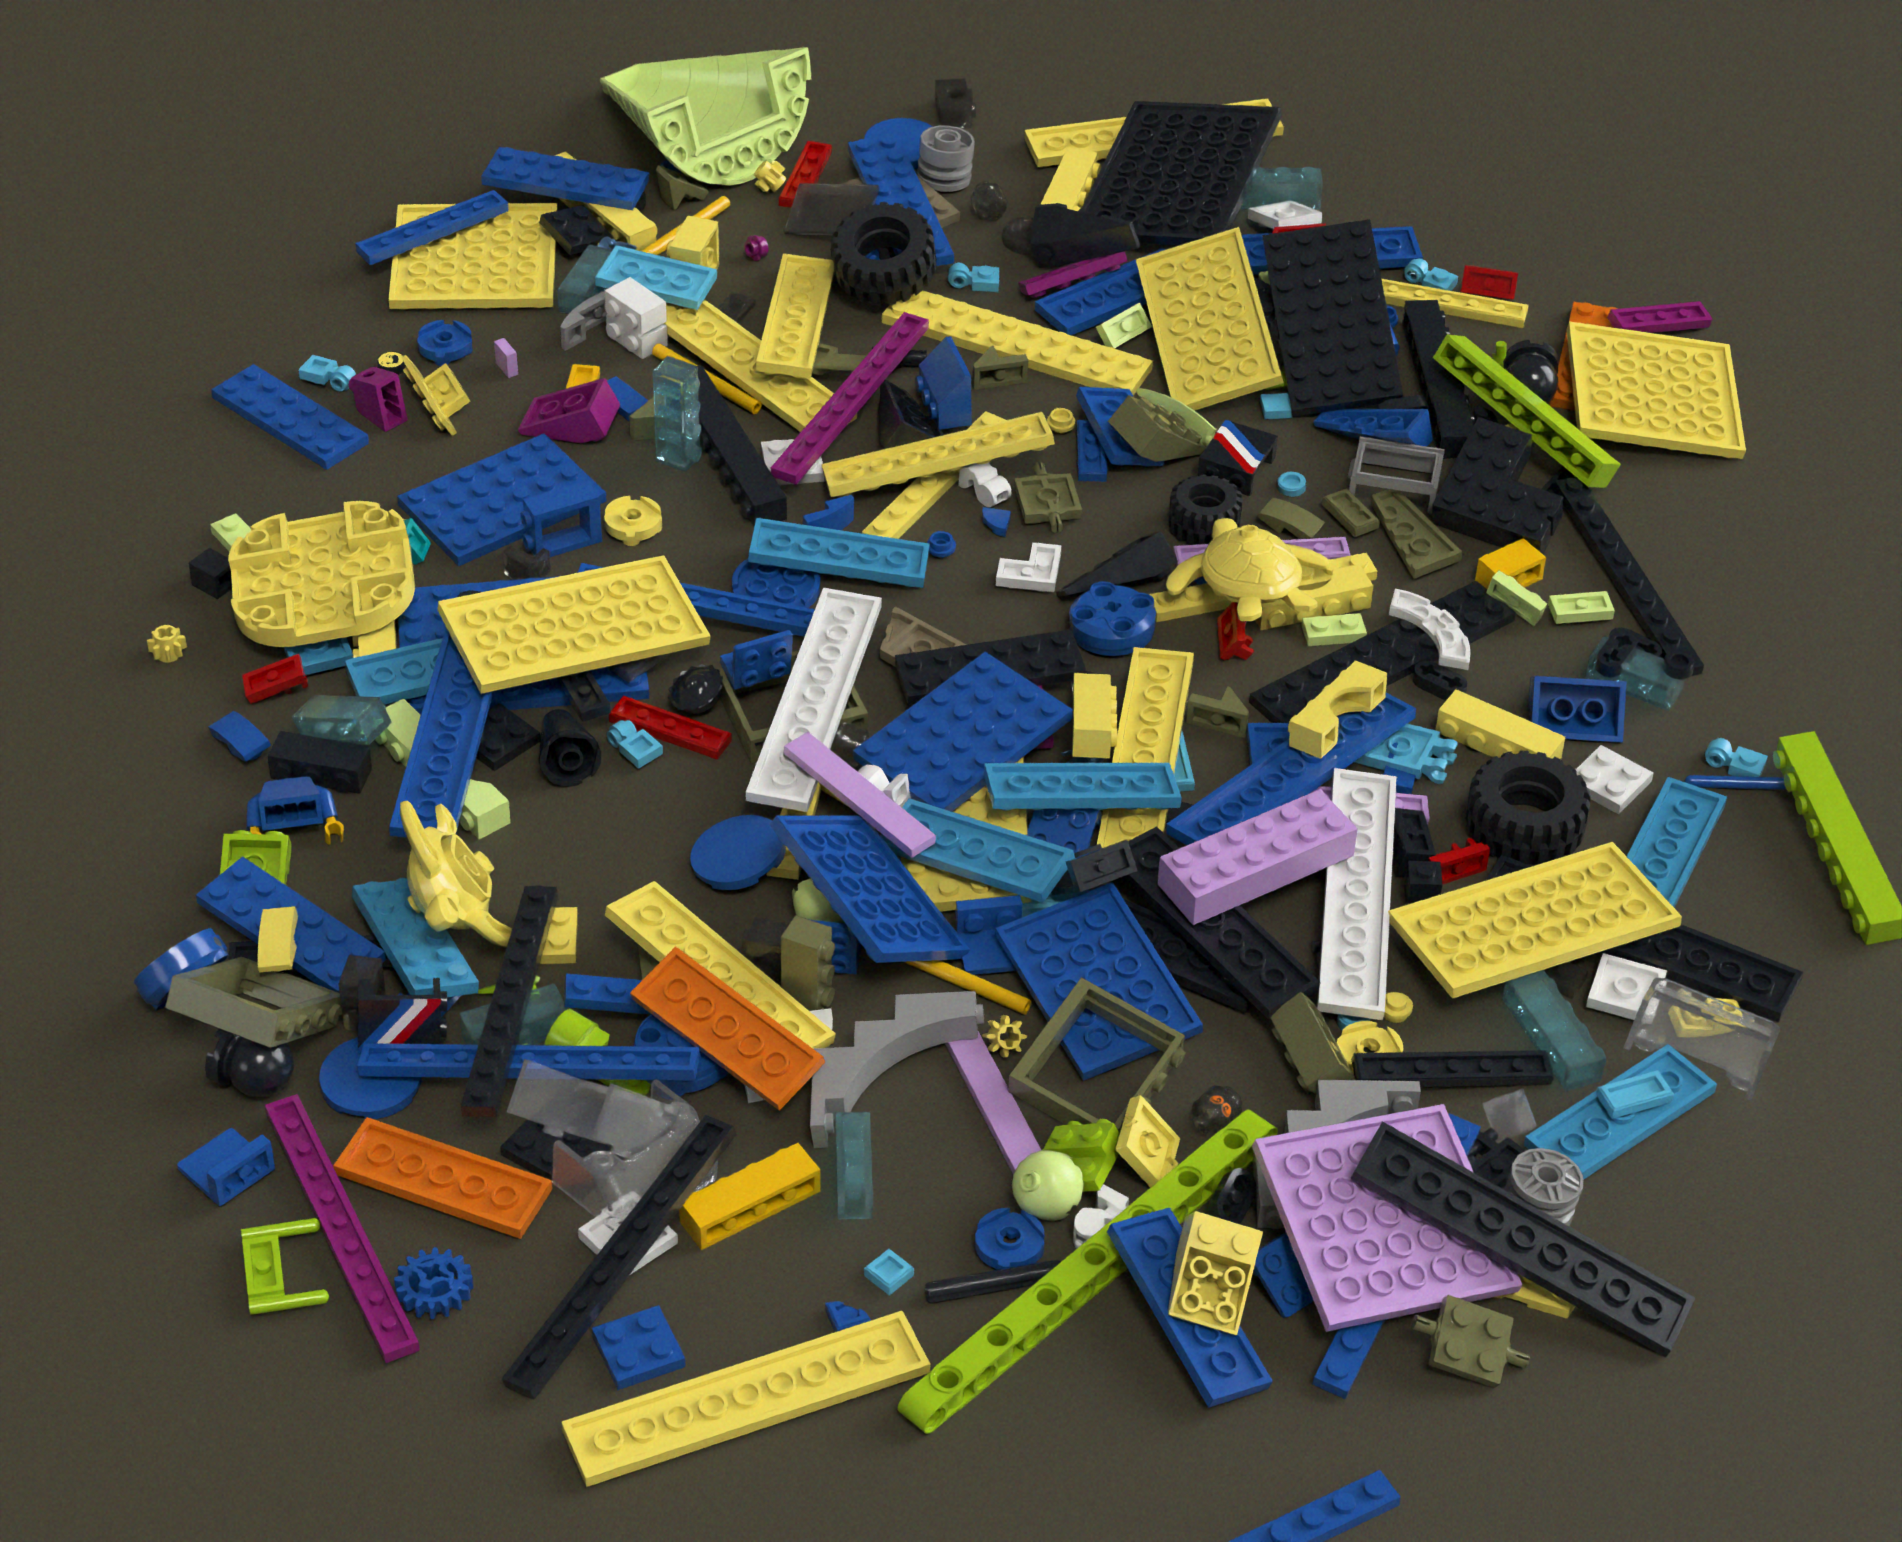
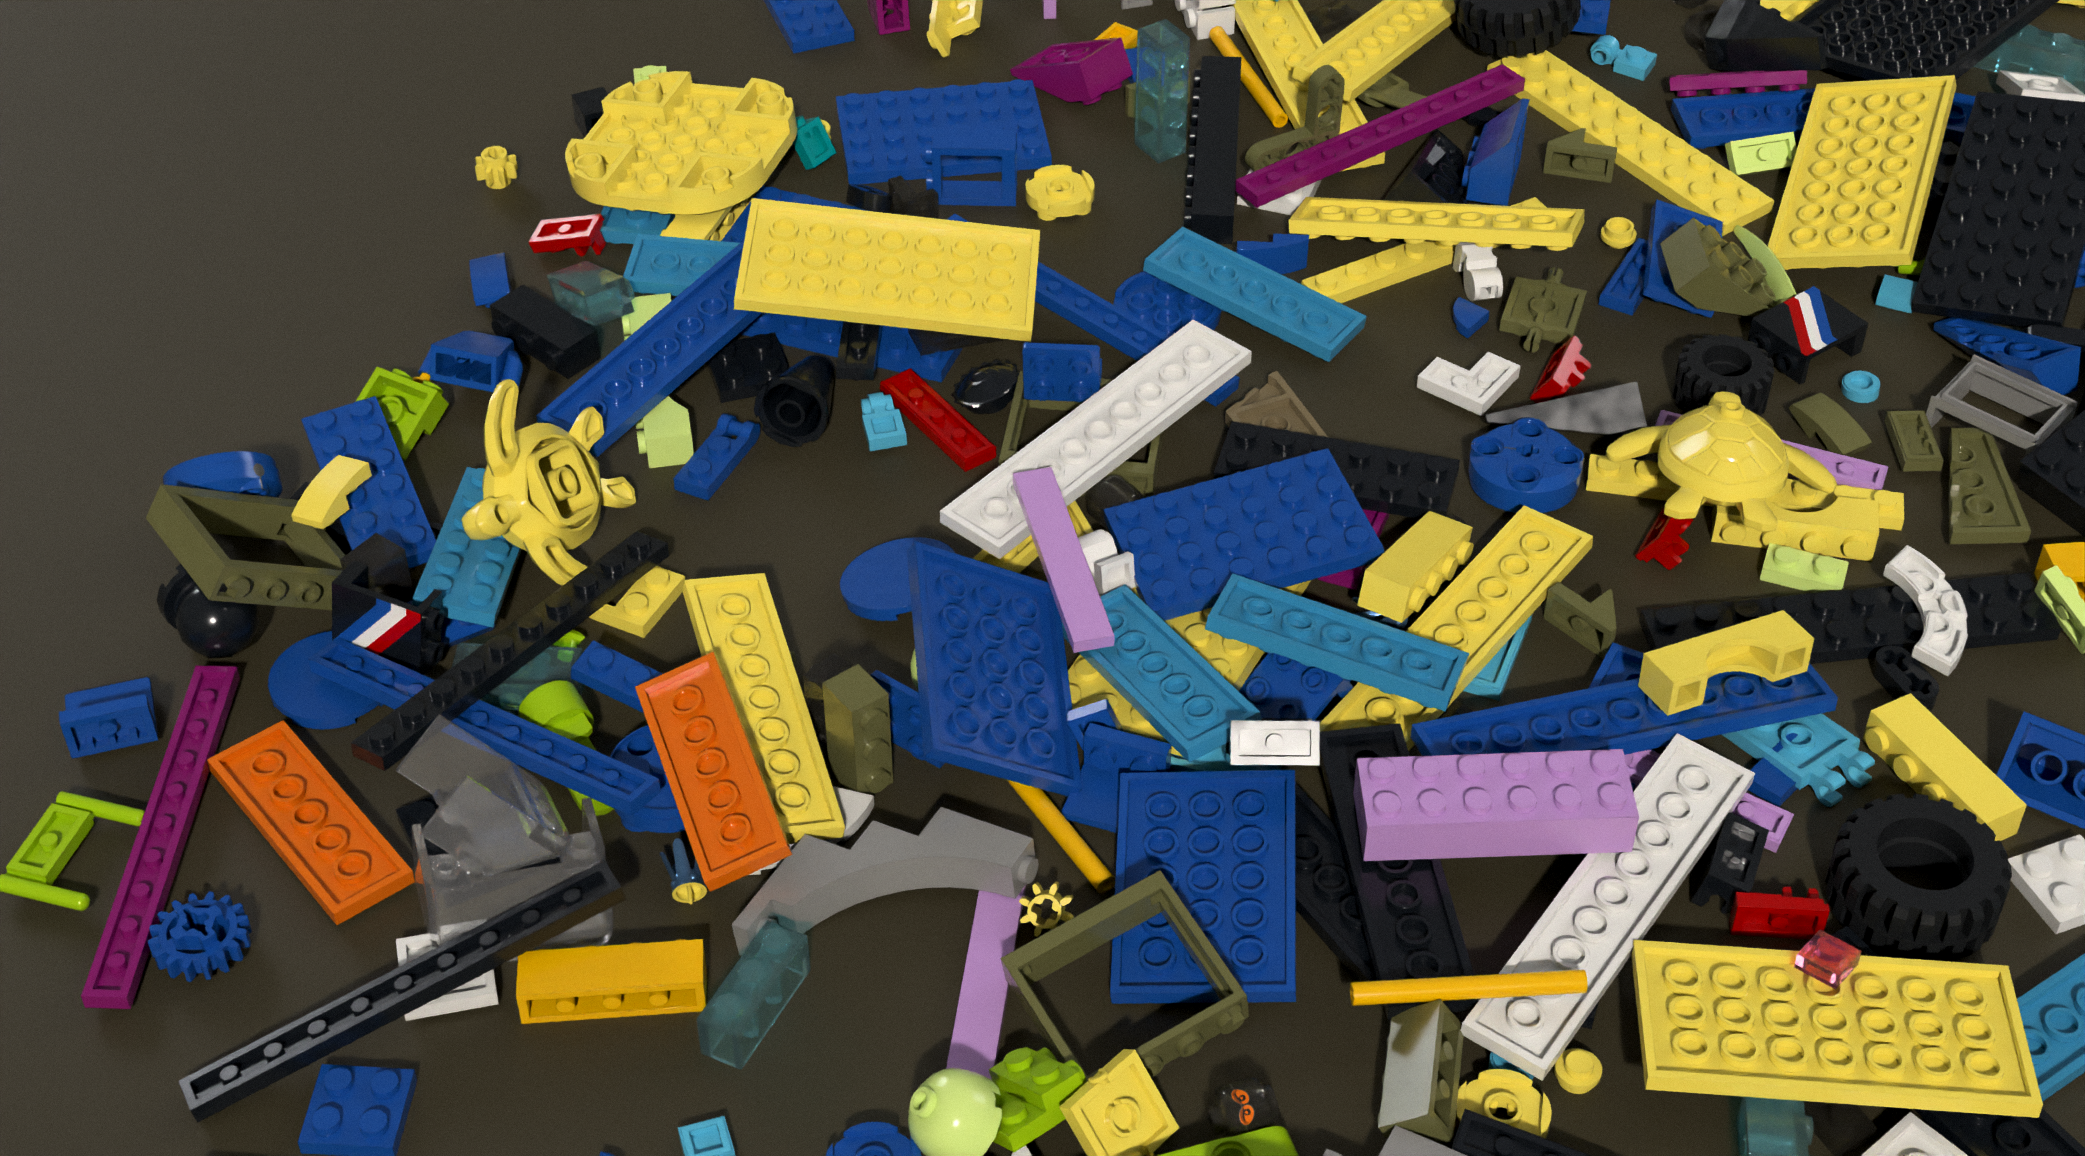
camera: 30 degrees right, 0 degrees up
(493, 572) = (869, 198): none -> black beam
(528, 813) = (717, 457): none -> blue plate
(749, 1114) = (686, 882): none -> flat silver piece
(807, 406) = (1316, 128): none -> olive beam
(941, 544) = (1383, 322): blue plate -> none
(947, 900) = (1096, 713): none -> blue plate
(1089, 541) = (1562, 371): none -> red plate
(1311, 978) = (1468, 987): none -> yellow piece
(1422, 881) = (1713, 919): black brick -> none
(1510, 877) = (1827, 959): none -> clear pink plate

